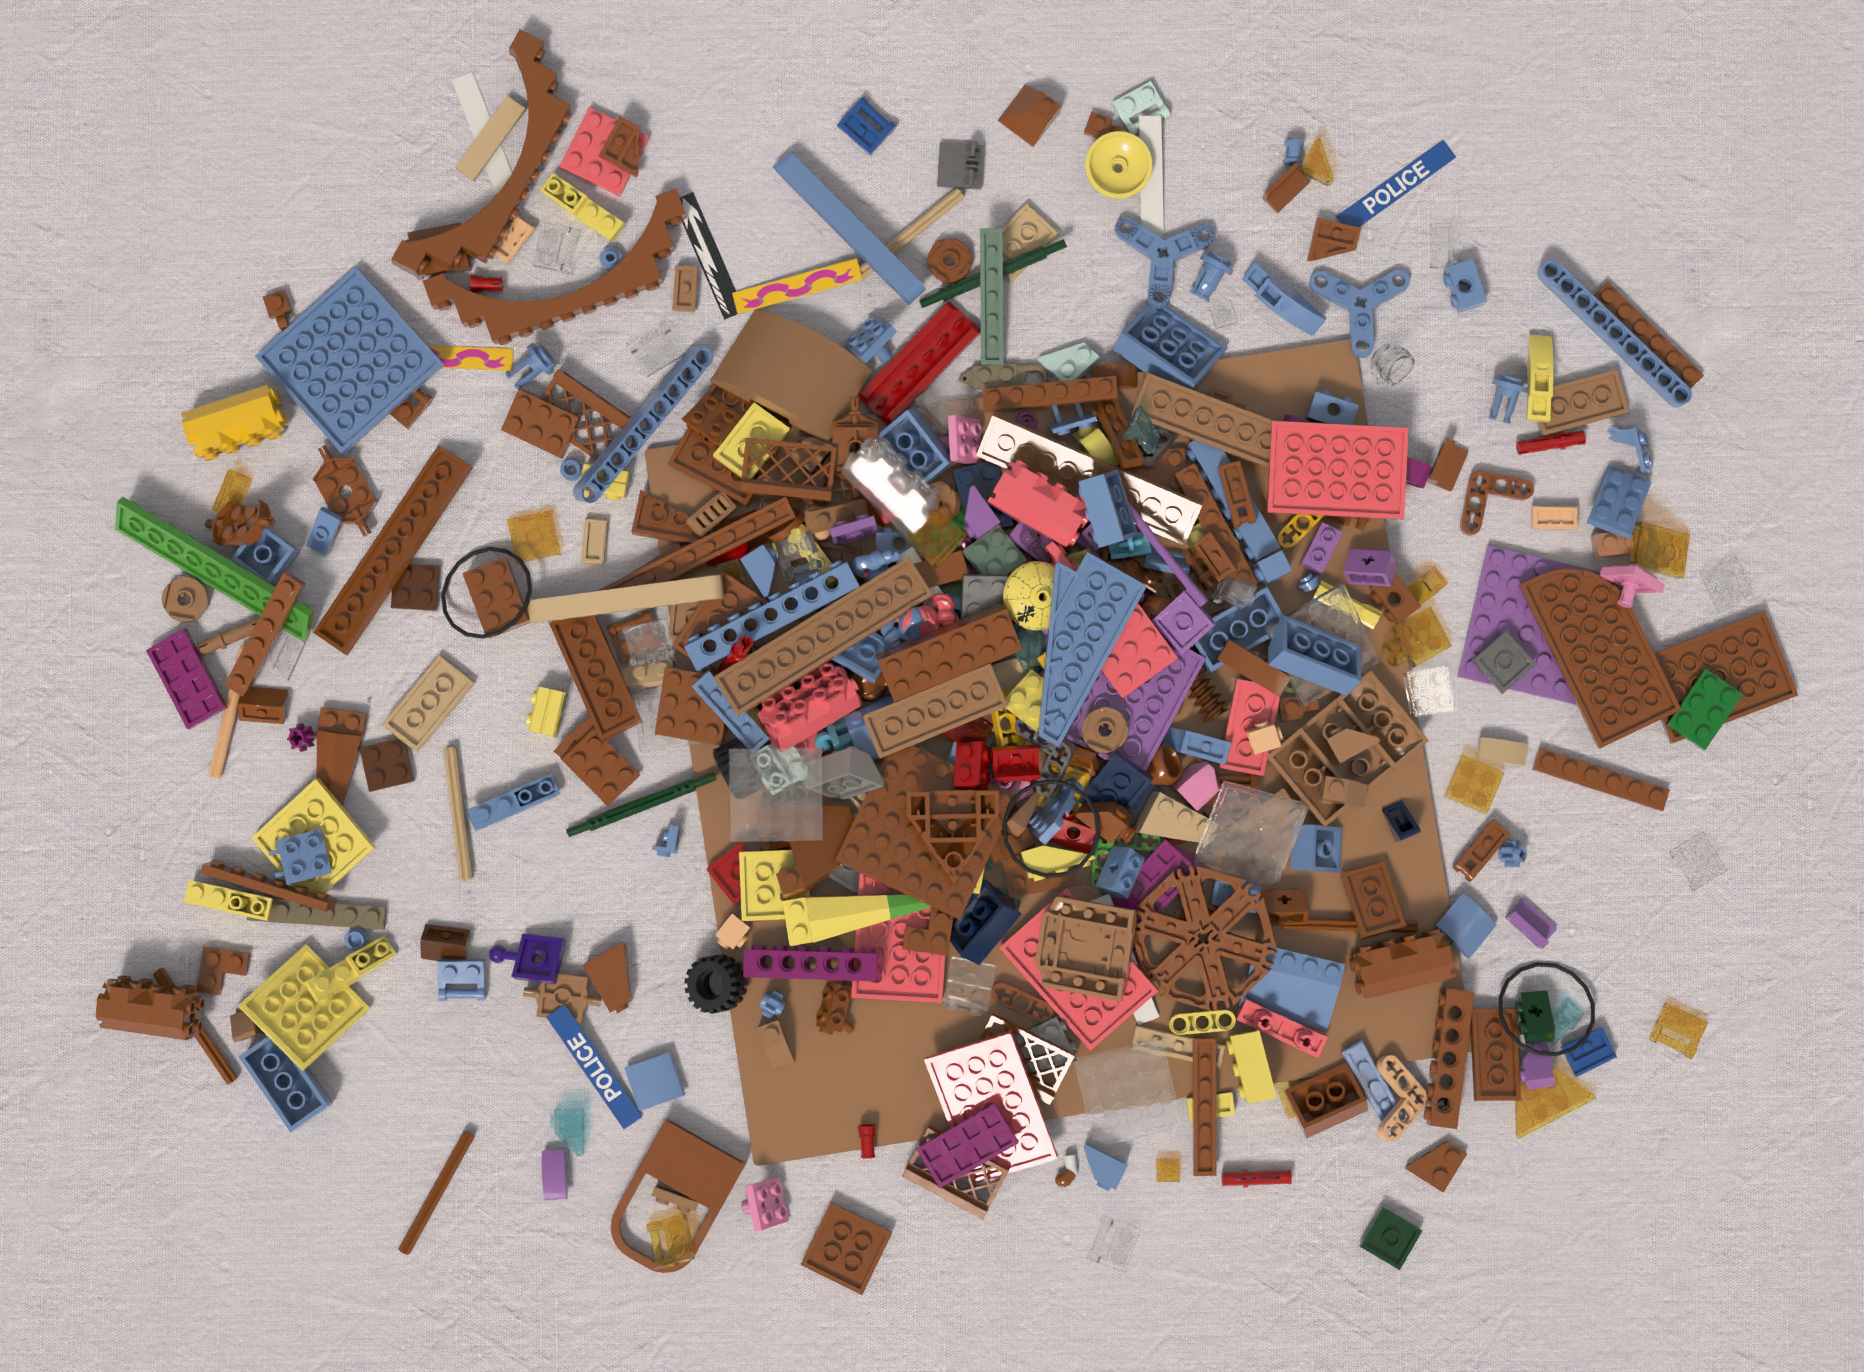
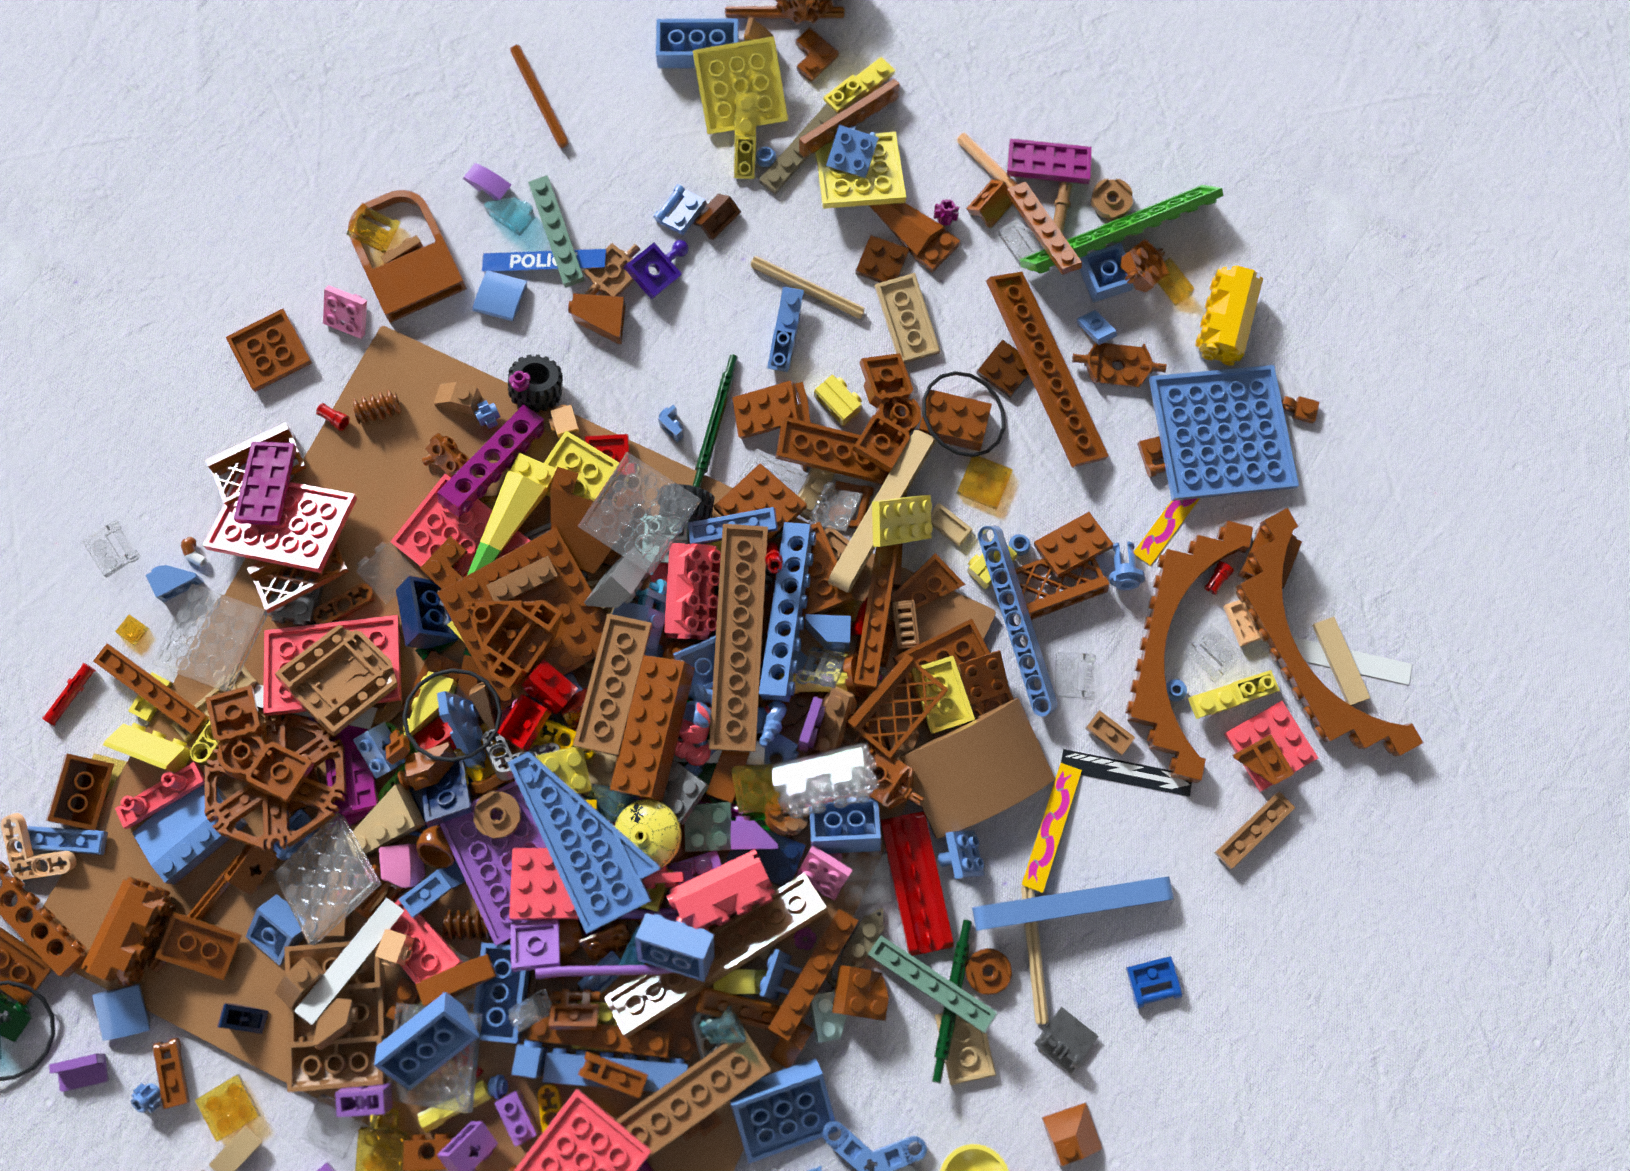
camera: 125 degrees right, 10 degrees down
(510, 671) = (889, 391): none -> dark orange plate
(559, 1075) = (556, 231): none -> sand green plate
(624, 575) = (901, 520): none -> light yellow plate
(686, 121) = (1254, 830): none -> medium nougat plate
(731, 986) = (519, 385): none -> magenta plate
(833, 1106) = (376, 407): none -> dark orange piece
(900, 852) = (523, 580): none -> medium nougat plate
(1039, 347) = (860, 993): none -> dark orange slope
(1107, 854) = (398, 748): none -> dark orange plate
(1185, 999) = (237, 730): none -> dark orange plate
(1298, 765) = (348, 961): none -> white sticker
(1392, 674) = (364, 1100): none -> medium lavender brick

